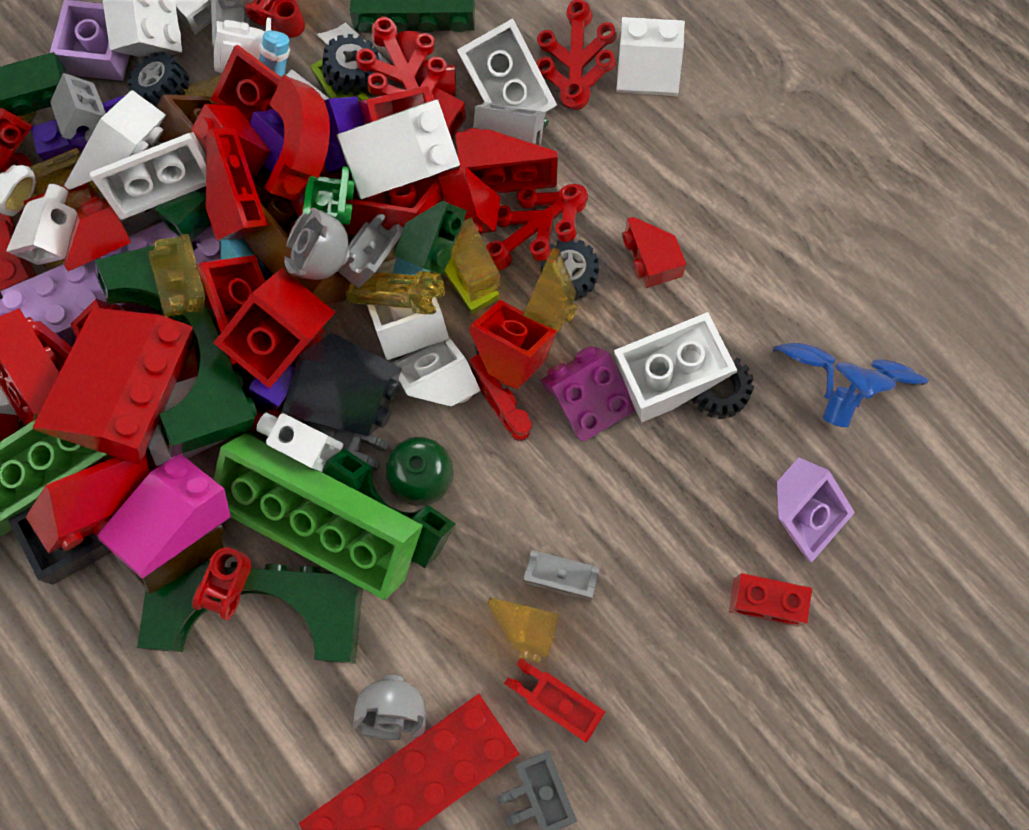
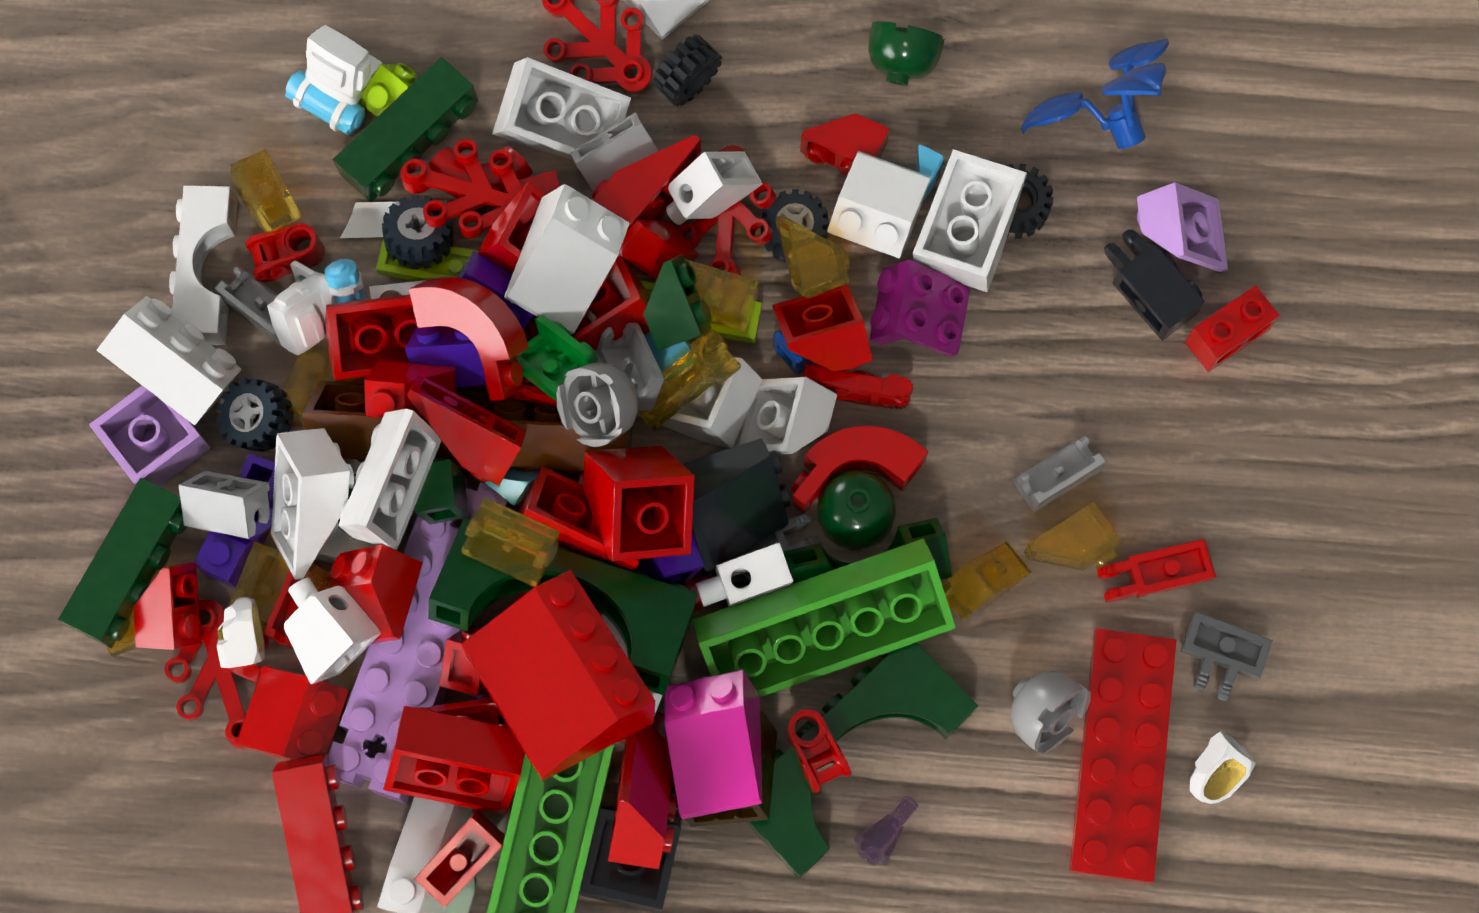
camera: 50 degrees left, 0 degrees up
(214, 677) = (880, 839): none -> clear purple cone
(444, 591) = (984, 580): none -> clear yellow slope
(455, 432) = (856, 448): none -> red arch
(540, 193) = (711, 185): none -> white torso
(604, 117) = (687, 70): none -> black tyre
(628, 303) = (879, 204): none -> white slope
(685, 311) = (930, 164): none -> medium azure slope
(748, 229) = (904, 51): none -> dark green cylinder
(750, 524) = (1154, 285): none -> black hinge

